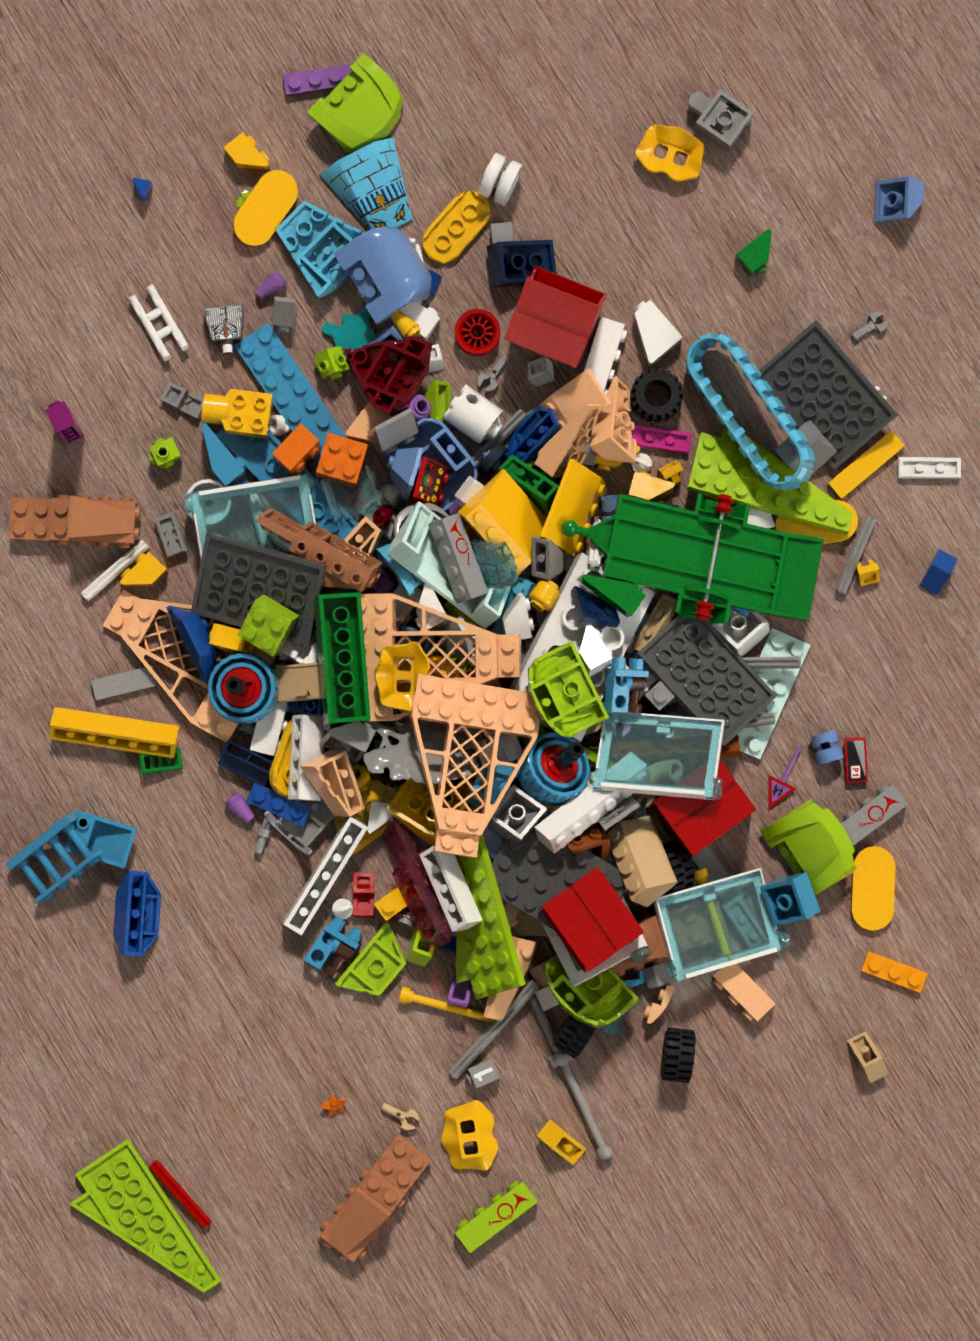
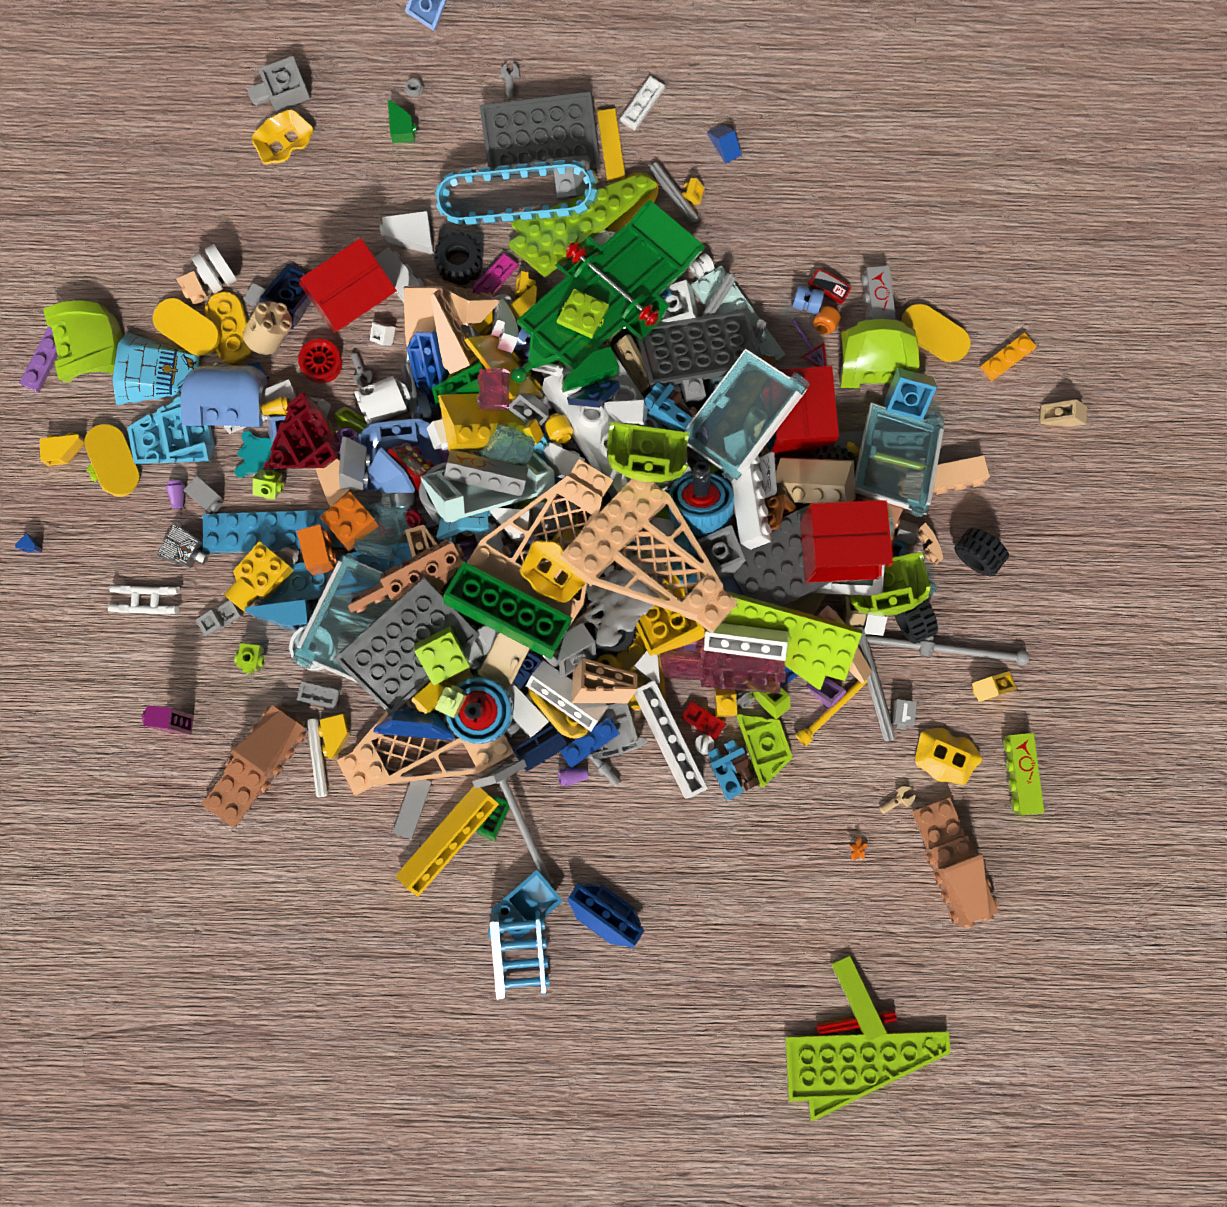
camera: 60 degrees left, 5 degrees down
(198, 743) = (500, 776): none -> light grey tile
(201, 1183) = (858, 999): none -> lime tile
(233, 659) = (451, 701): none -> yellowish green brick
(431, 189) = (186, 327): none -> yellow tile
(471, 170) = (192, 287): none -> light nougat brick
(474, 267) = (267, 327): none -> tan cylinder
(526, 574) = (533, 430): none -> yellow tile
(537, 516) = (493, 389): none -> clear pink brick
(613, 483) = (505, 327): none -> white slope
(663, 550) = (583, 313): none -> lime plate
(797, 627) = (702, 265): none -> white wheel
(807, 241) = (413, 83): none -> light grey plate
(818, 777) = (826, 320): none -> orange head

